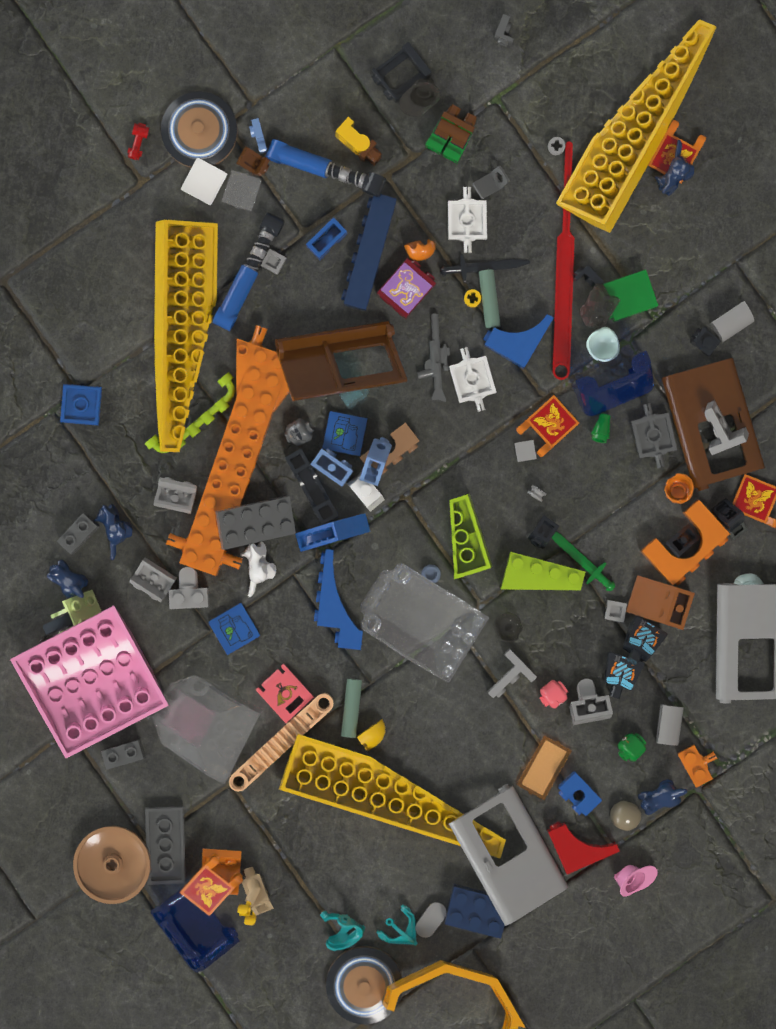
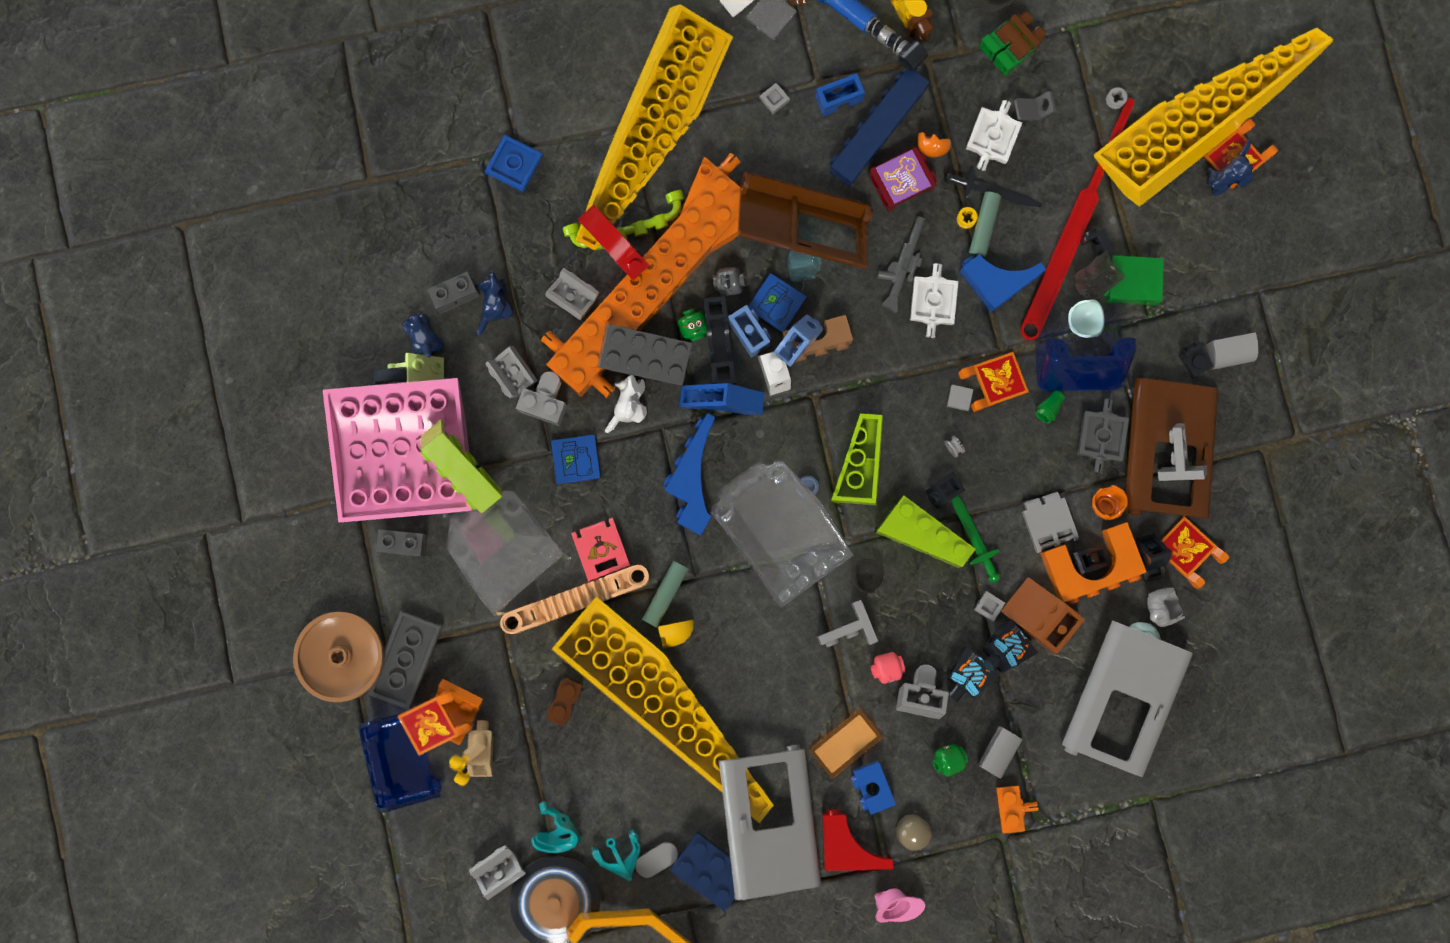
camera: 20 degrees right, 5 degrees down
(145, 676) = (459, 468): none -> lime wedge
(194, 441) = (613, 242): none -> red arch
(247, 274) = (705, 130): piece -> none
(284, 481) = (693, 325): none -> green head
(306, 820) = (567, 695): none -> reddish brown brick
(309, 980) = (497, 871): none -> light grey bracket
(636, 523) = (1049, 521): none -> light grey plate
(664, 796) = (963, 828): dark blue animal -> none
(755, 555) = (1164, 607): none -> light grey hair

